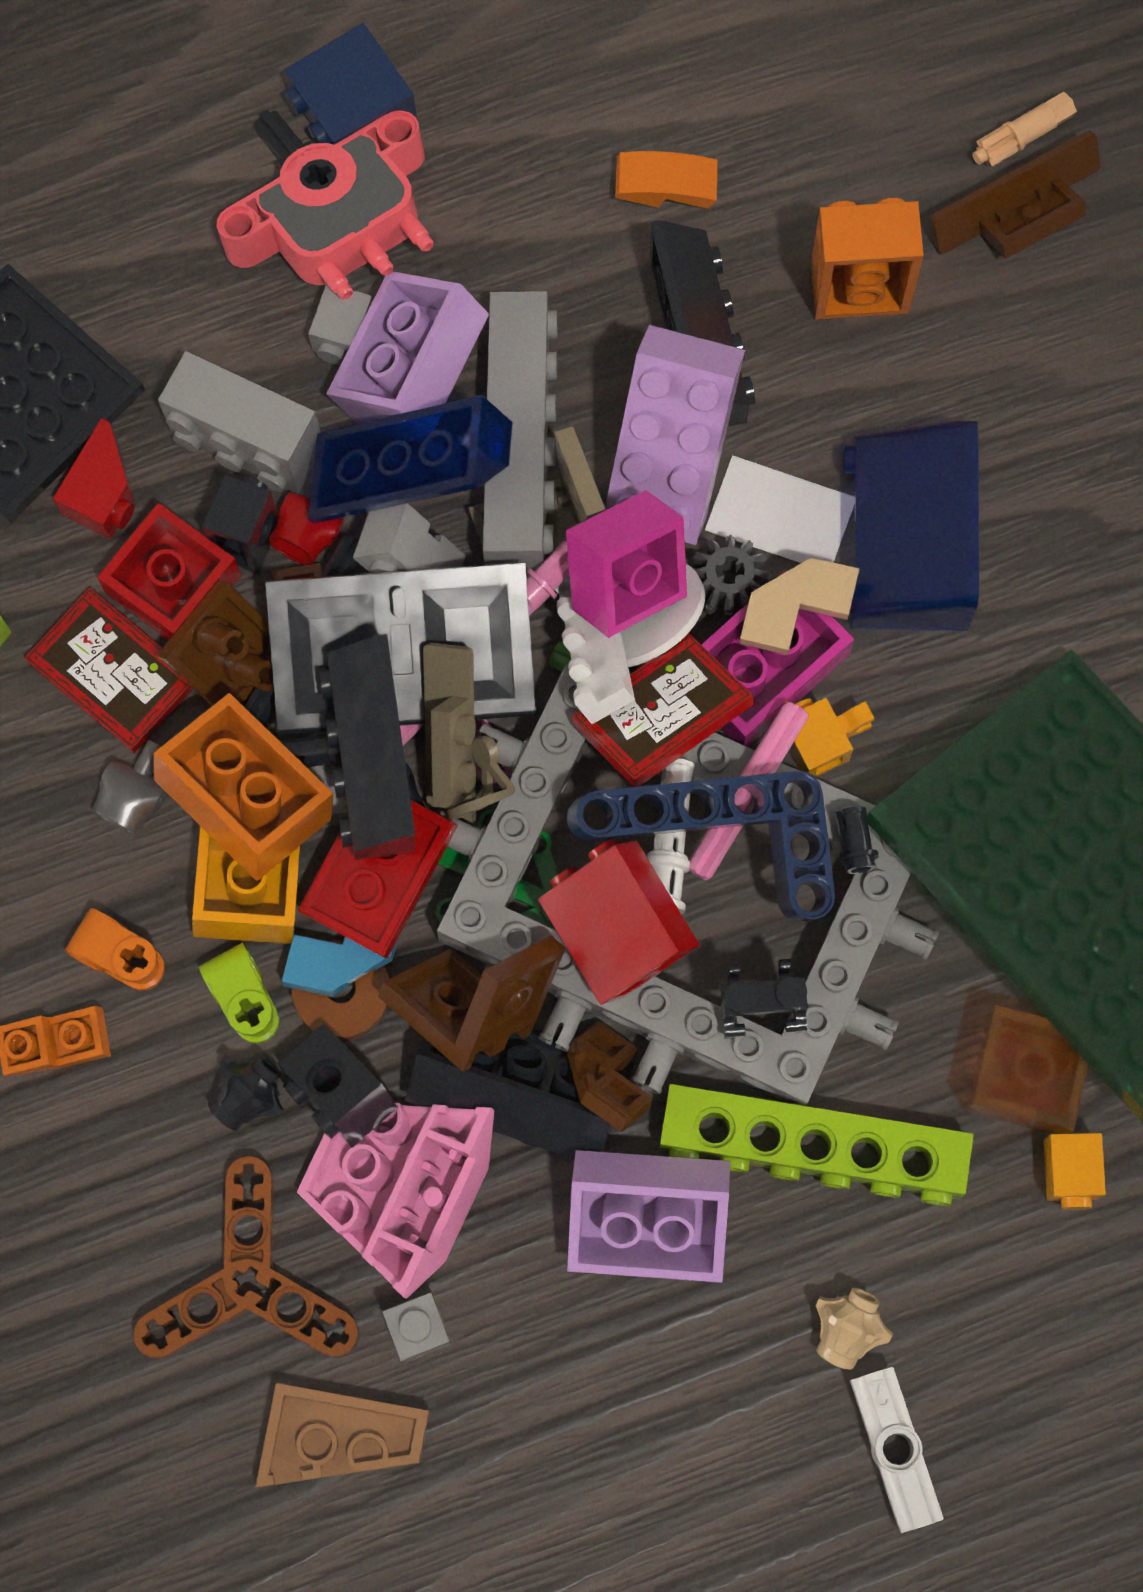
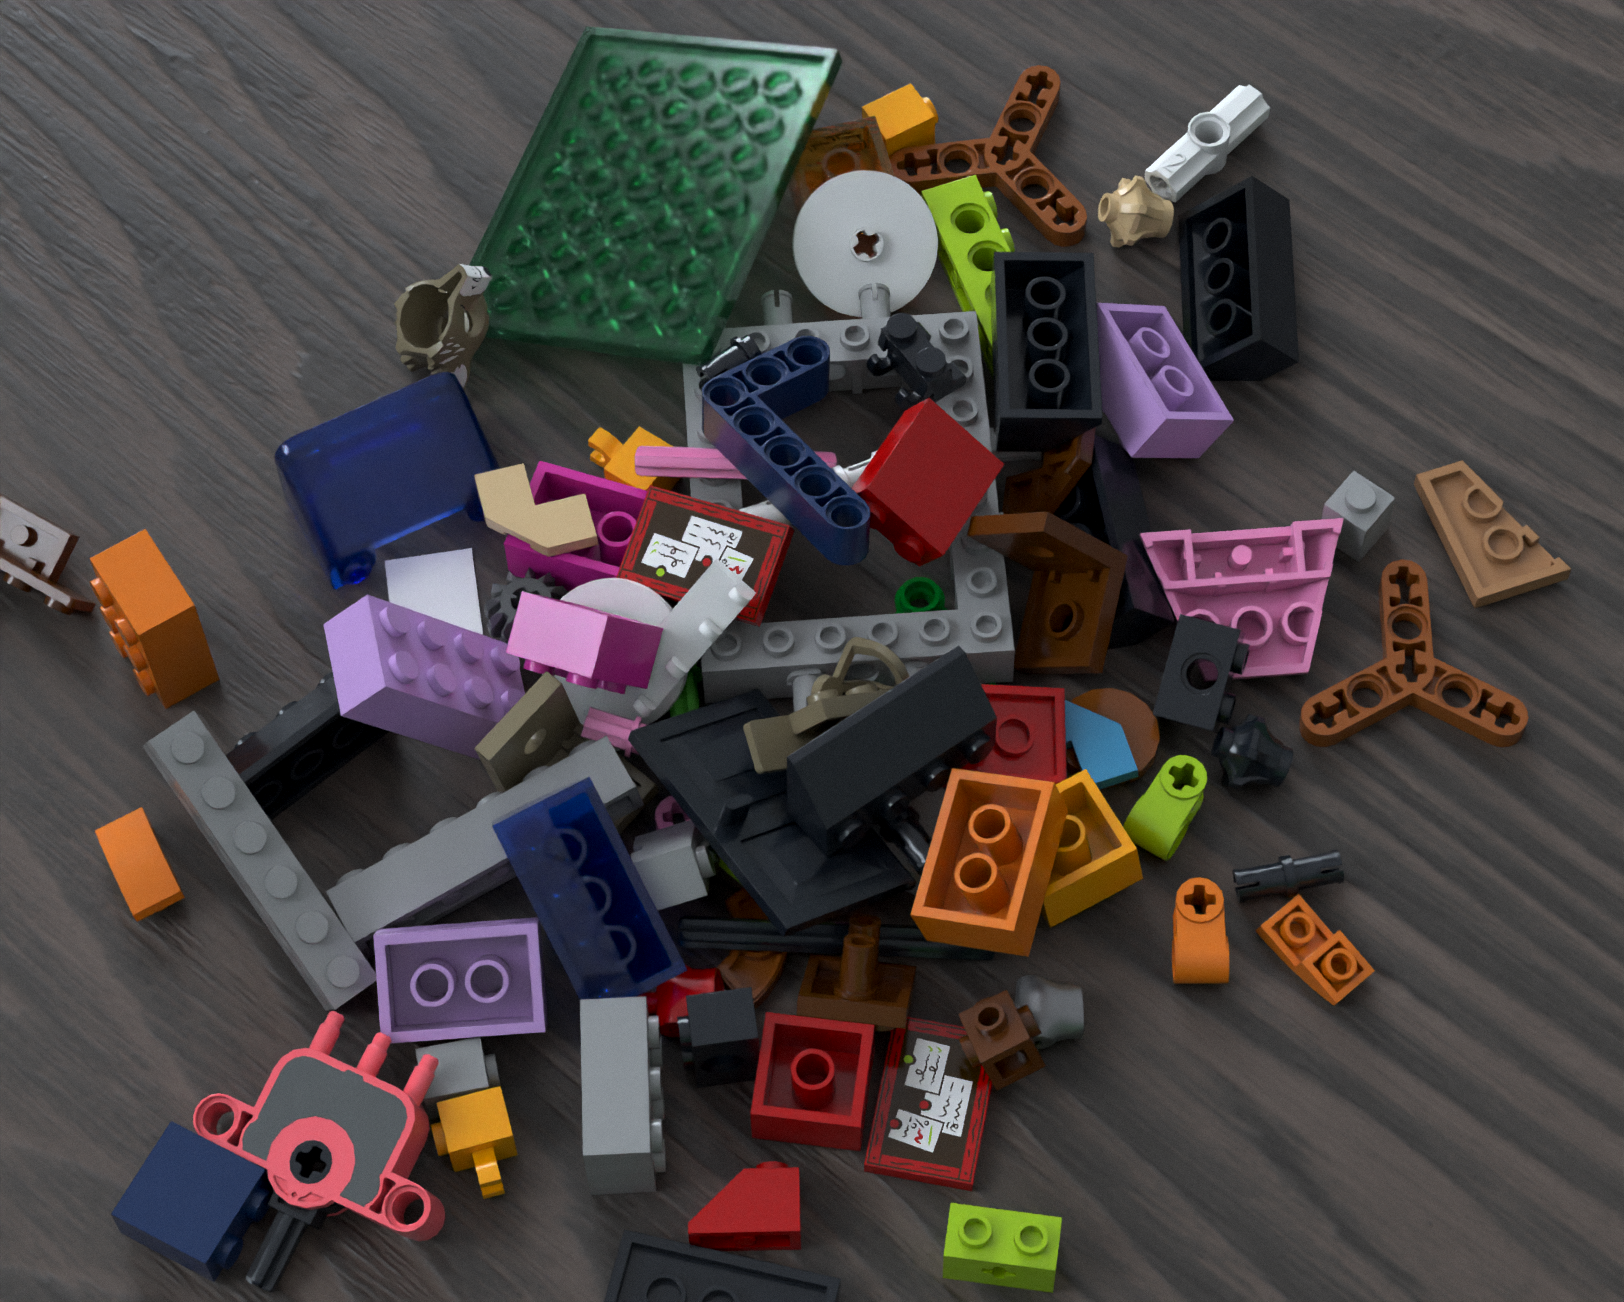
camera: 120 degrees left, 15 degrees down
(109, 729) = (1001, 1039): none -> reddish brown brick
(125, 1058) = (1288, 876): none -> black pin
(281, 319) = (476, 1135): none -> light orange brick
(587, 230) = (260, 861): none -> light grey brick
(713, 1121) = (1044, 349): none -> black slope
(721, 1379) = (1239, 283): none -> black slope
(971, 1068) = (876, 206): none -> white piece
(987, 1226) = (1016, 173): none -> dark orange piece
(1044, 628) = (443, 321): none -> dark tan piece

